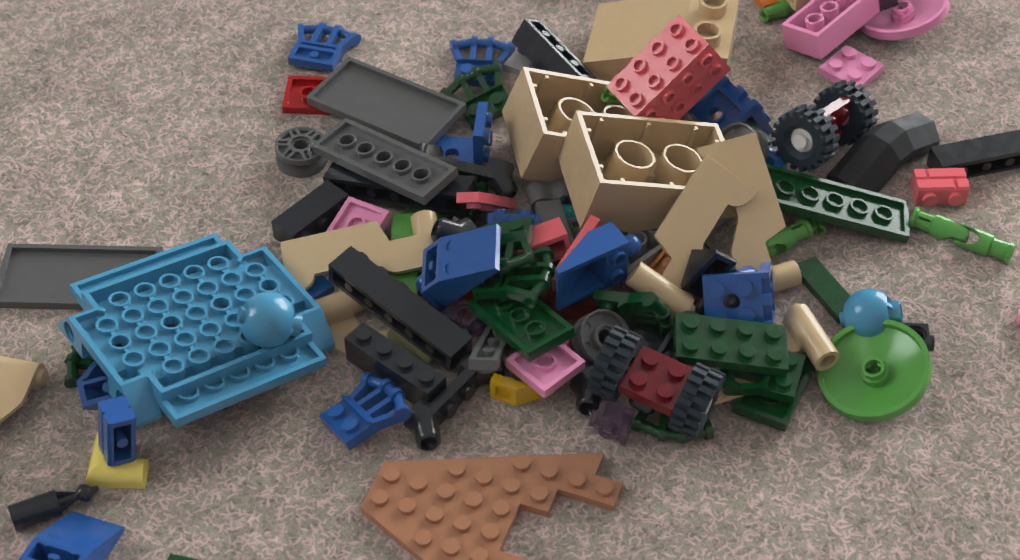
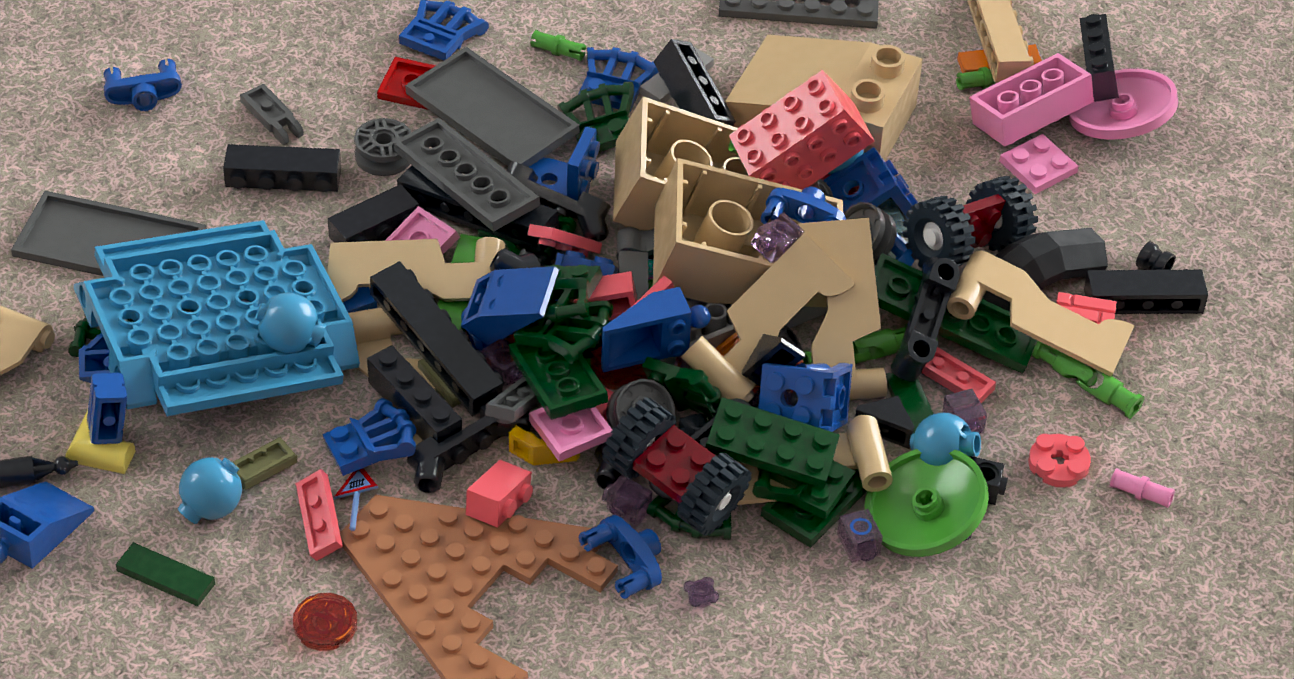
camera: 10 degrees right, 0 degrees up
(64, 143) = (154, 86): none -> blue connector
(195, 141) = (271, 112): none -> dark grey hinge
(217, 185) = (282, 168): none -> black brick
(231, 488) = (209, 489): none -> dark azure brick
(271, 453) = (264, 462): none -> olive plate
(338, 492) = (319, 515): none -> coral plate
(362, 456) = (356, 483): none -> piece
(424, 42) = (558, 45): none -> bright green pin
(497, 438) = (498, 493): none -> coral brick
(633, 464) = (635, 548): none -> blue connector
(681, 133) = (801, 206): none -> blue connector
(681, 163) = (776, 237): none -> clear purple brick
(705, 499) = (701, 599): none -> clear purple plate
(818, 301) = (891, 418): none -> black slope
(819, 233) = (920, 336): none -> black plate
(826, 412) = (860, 536): none -> brick
(847, 253) = (957, 375): none -> coral plate
(874, 278) = (967, 407): none -> clear purple brick
(960, 206) = (1036, 315): none -> tan door
(971, 299) = (1070, 448): none -> coral plate
(976, 128) = (1154, 259): none -> black wheel

